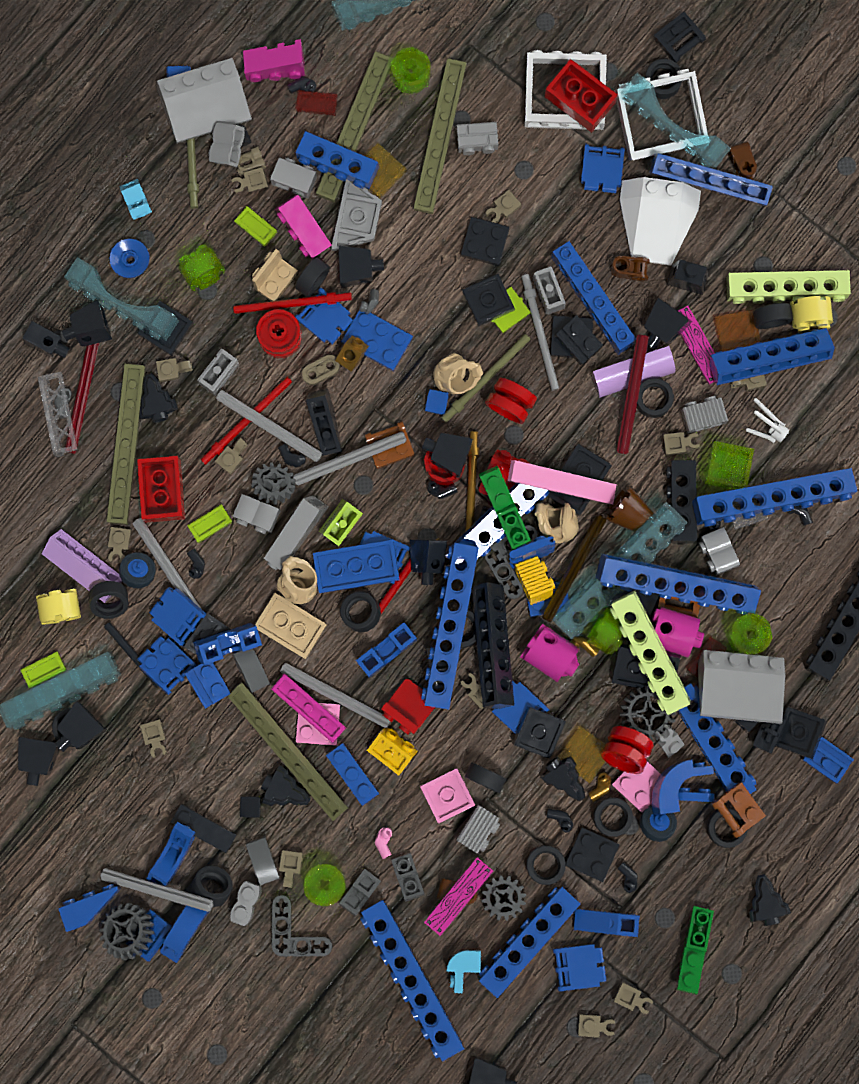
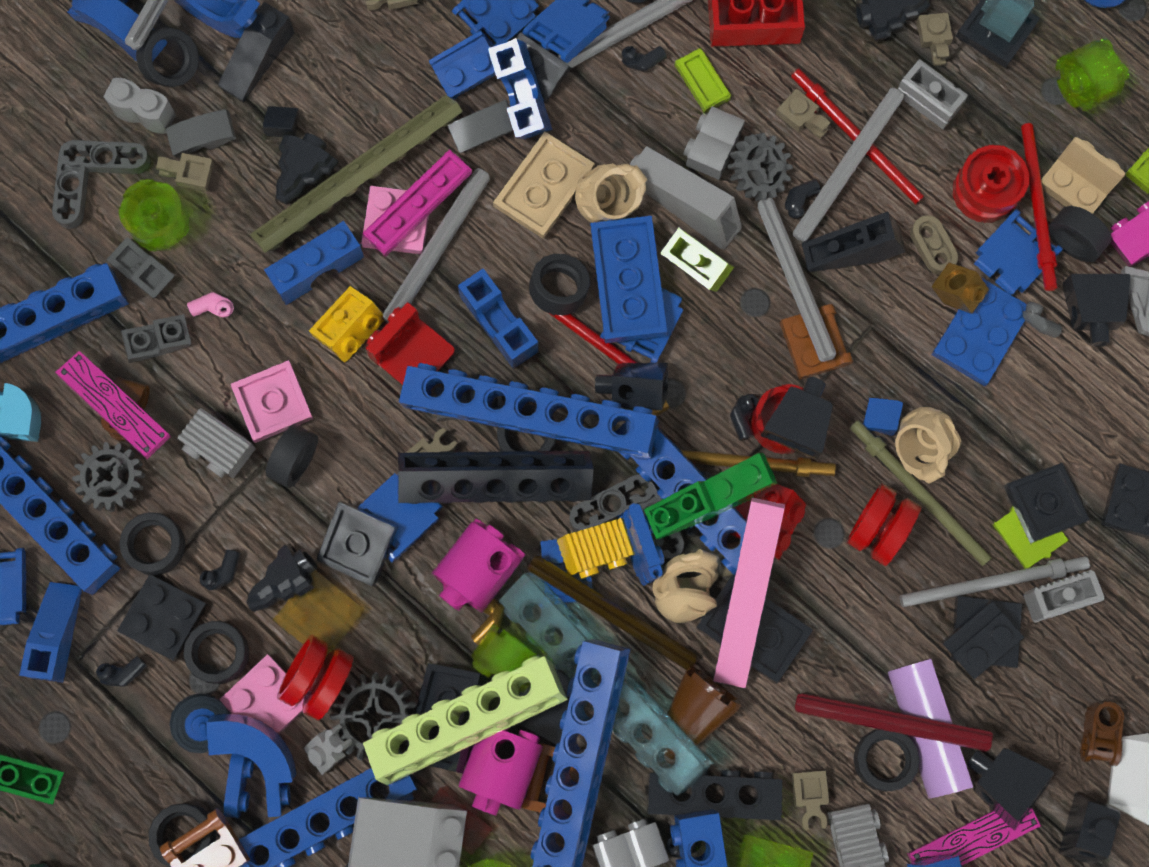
camera: 85 degrees right, 5 degrees down
(593, 298) = (1052, 668): blue brick -> none
(603, 787) = (263, 639): pearl gold arm -> none

